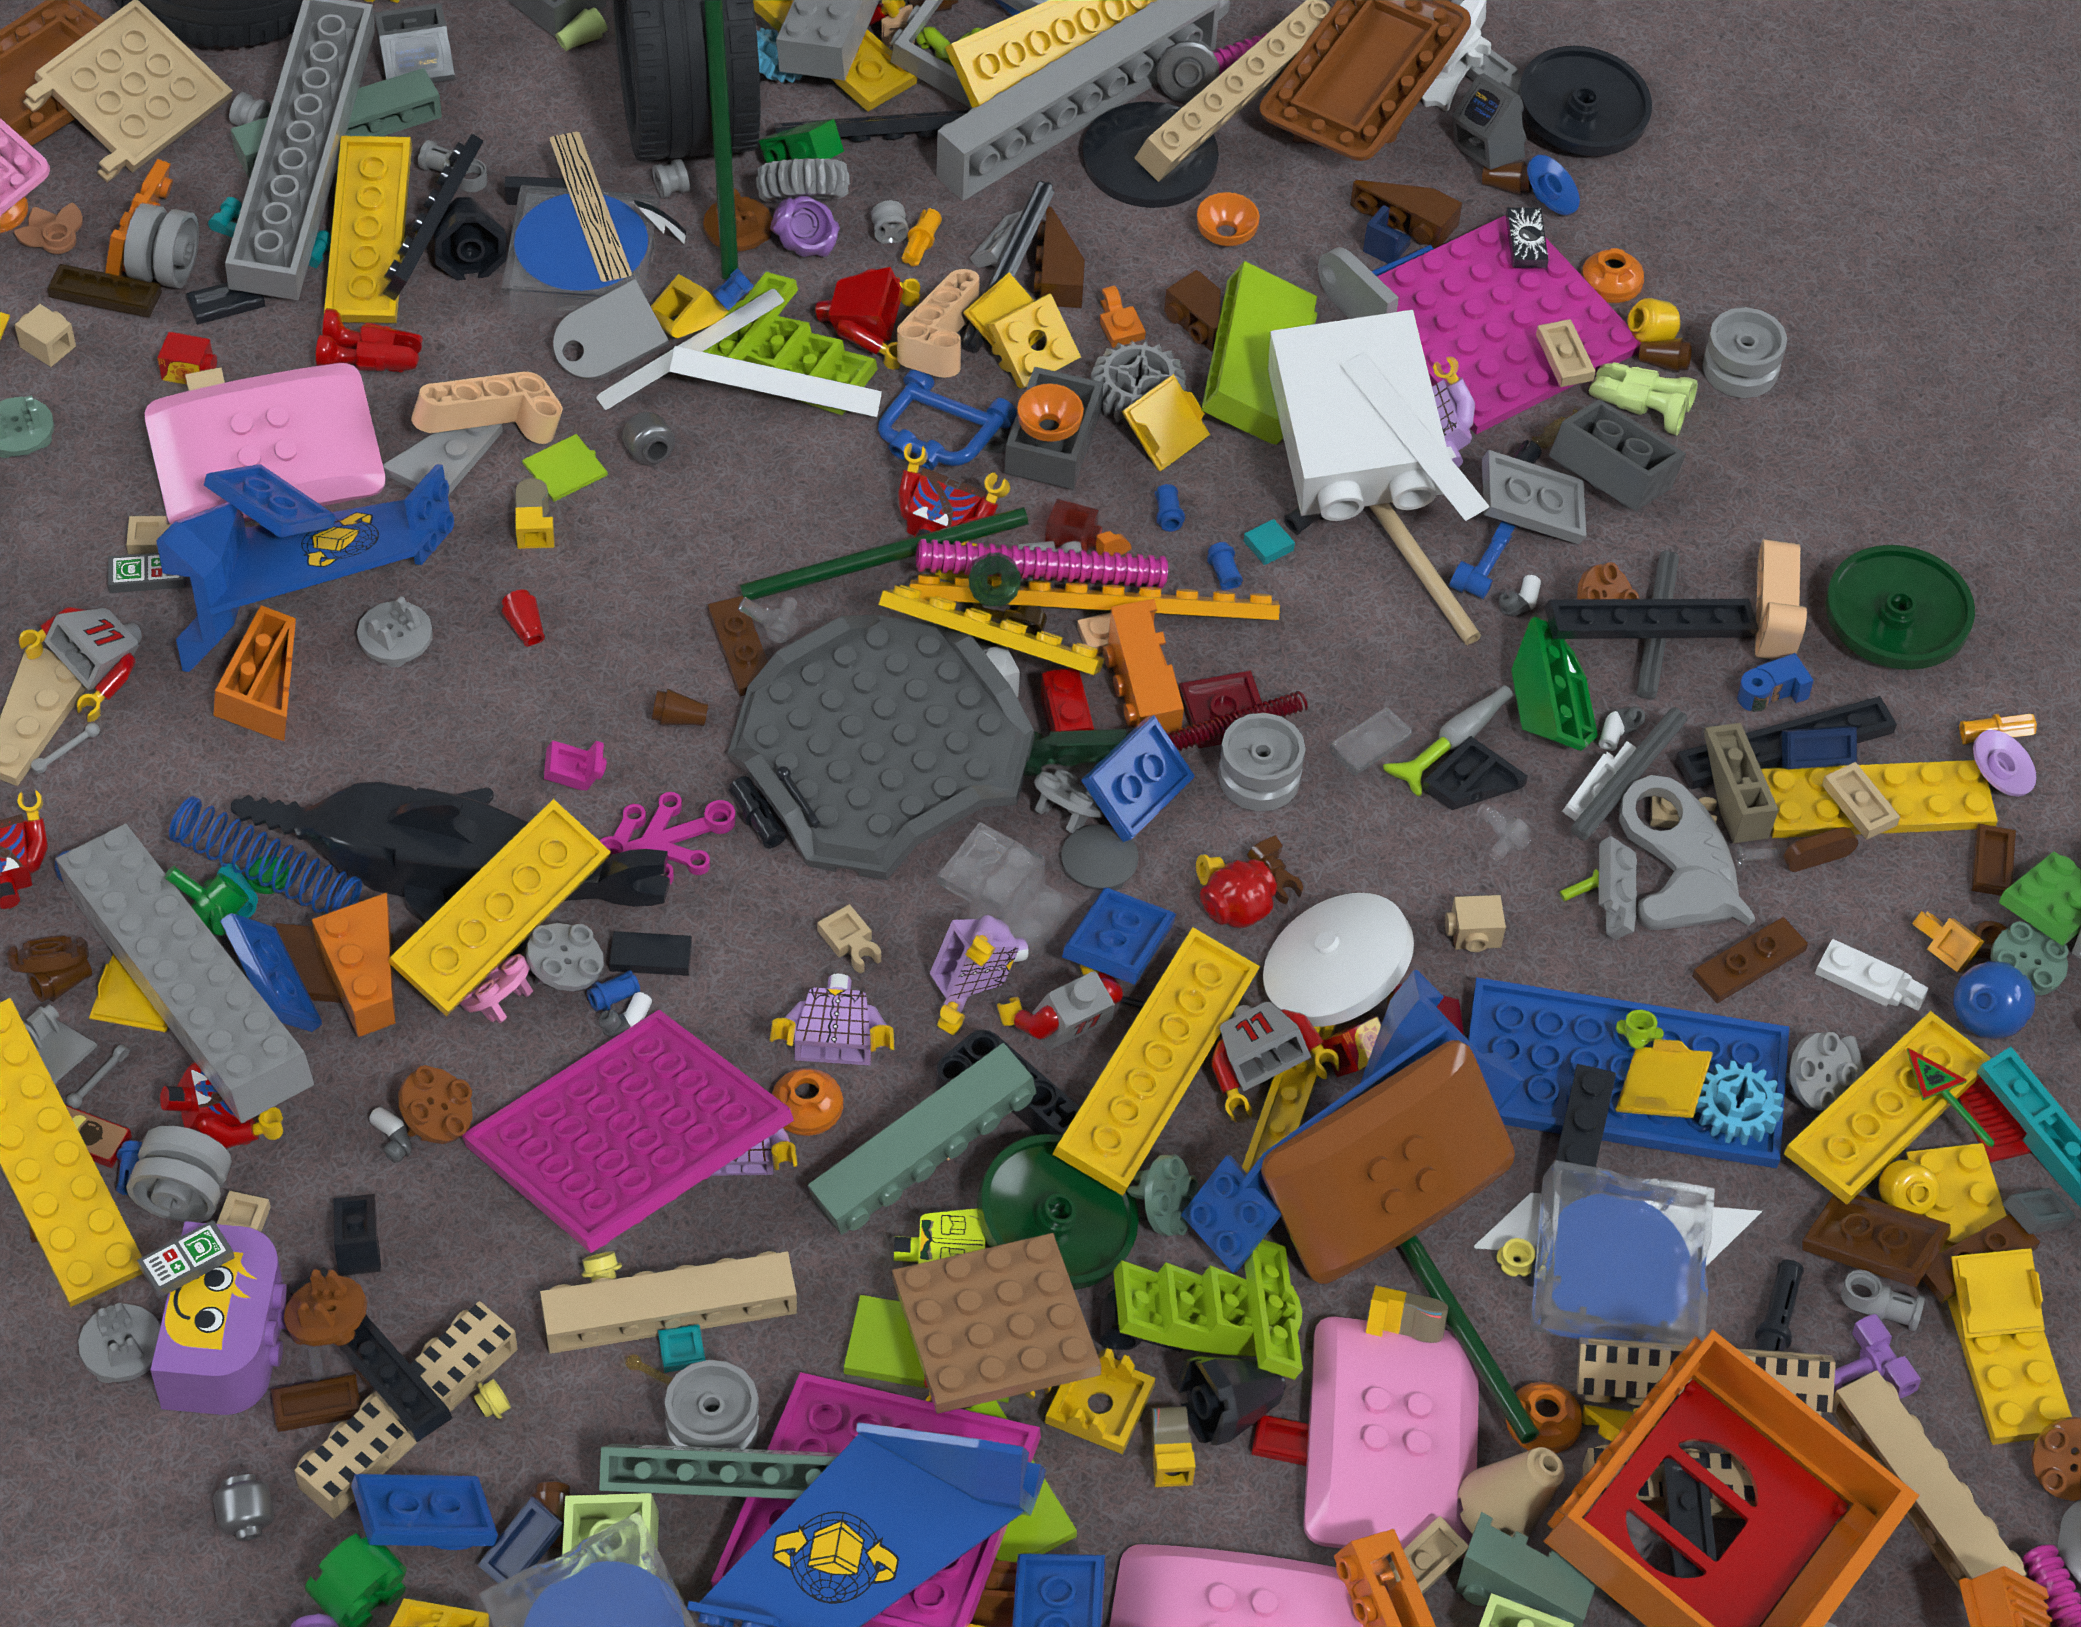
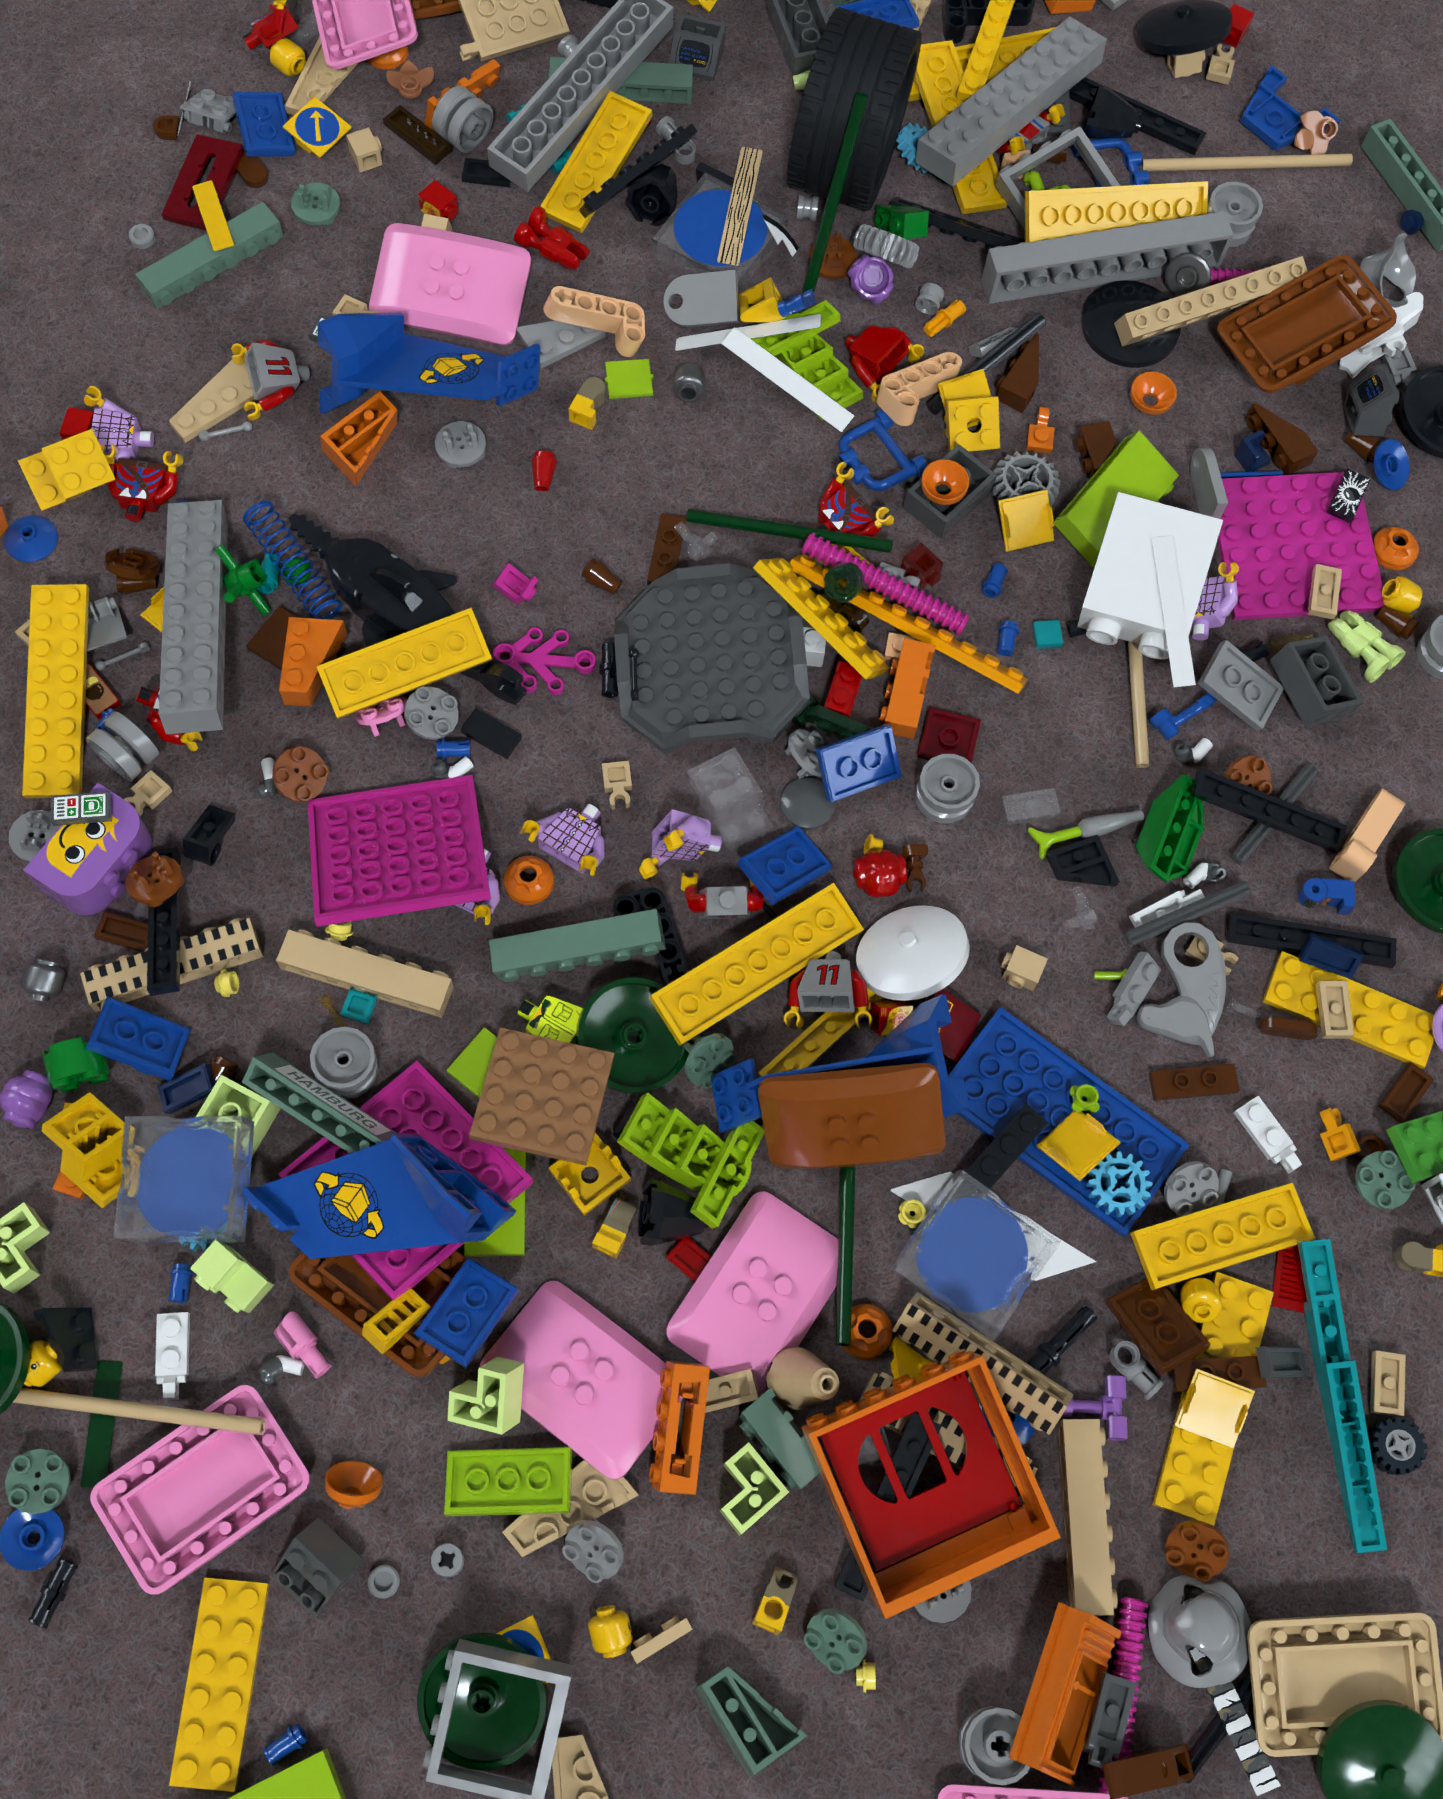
camera: 25 degrees right, 15 degrees up
(269, 500) = (421, 323): blue tile -> none
(271, 971) = (247, 640): blue tile -> none
(1112, 543) = (940, 590): orange tile -> none
(1282, 709) = (917, 746): dark red piece -> none
(1406, 1315) = (814, 1217): leg -> none
(1739, 784) = (1258, 956): dark tan slope -> none
(1936, 1079) = (1265, 1234): piece -> none
(1994, 1000) = (1341, 1197): blue cylinder -> none

